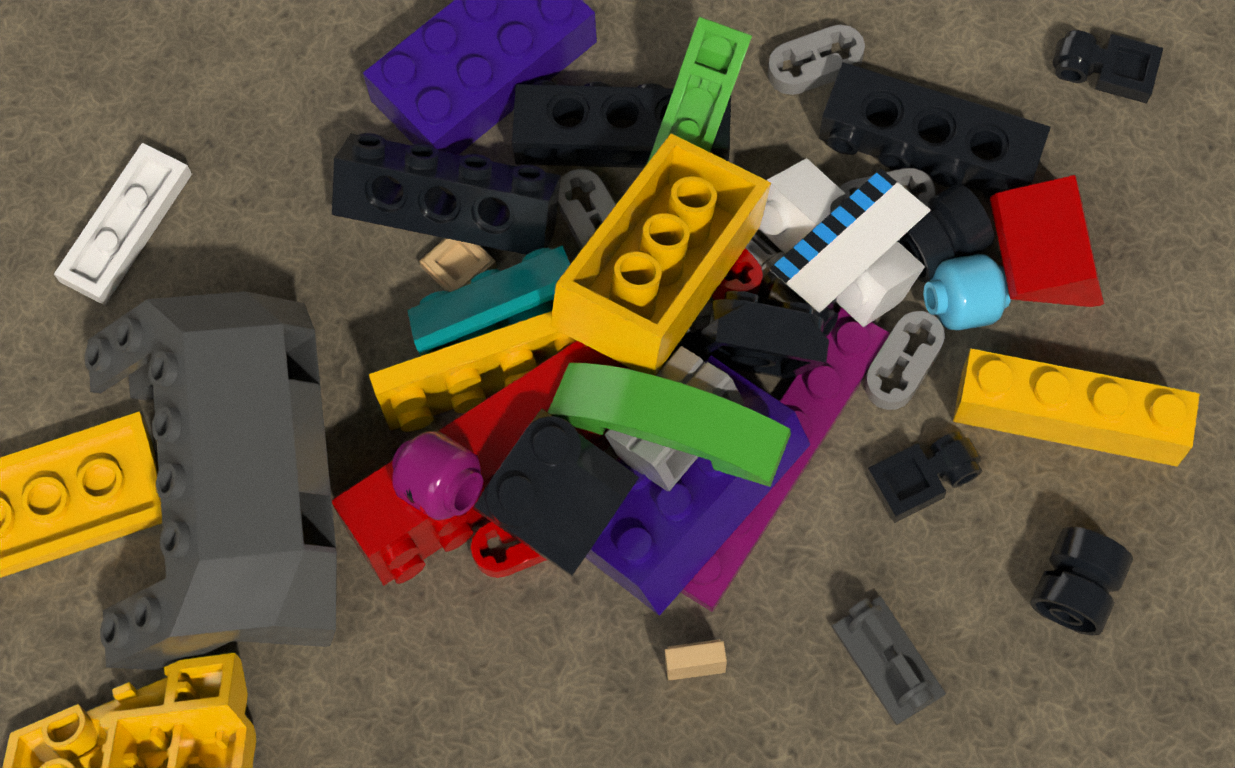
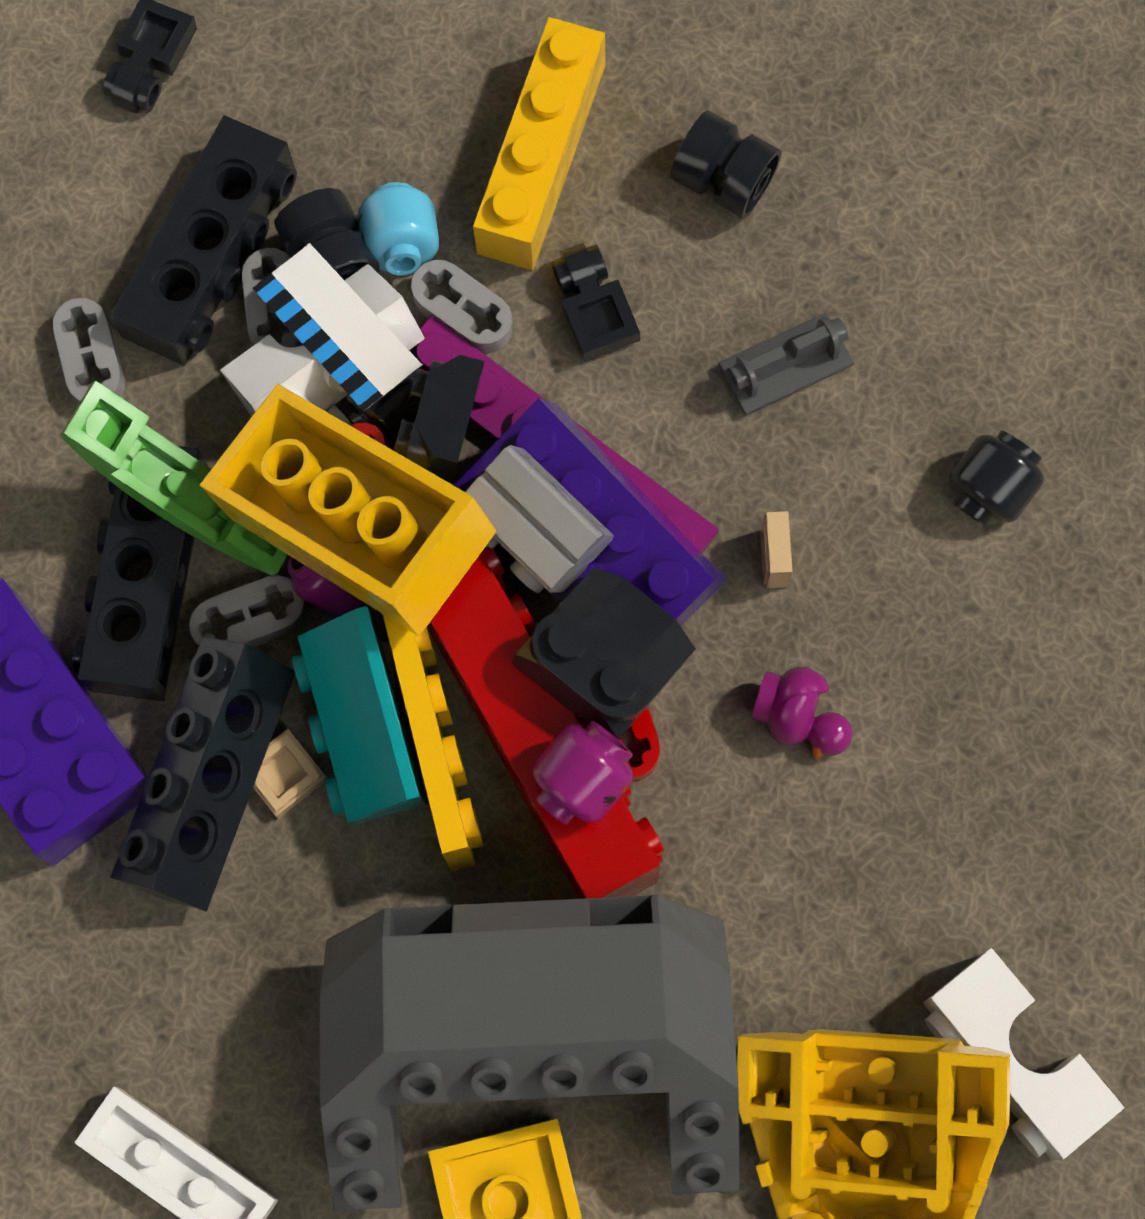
camera: 85 degrees left, 5 degrees up
(546, 686) = (789, 709): none -> magenta animal
(672, 416) = (543, 520): bright green slope -> none
(1047, 244) = (357, 137): red slope -> none

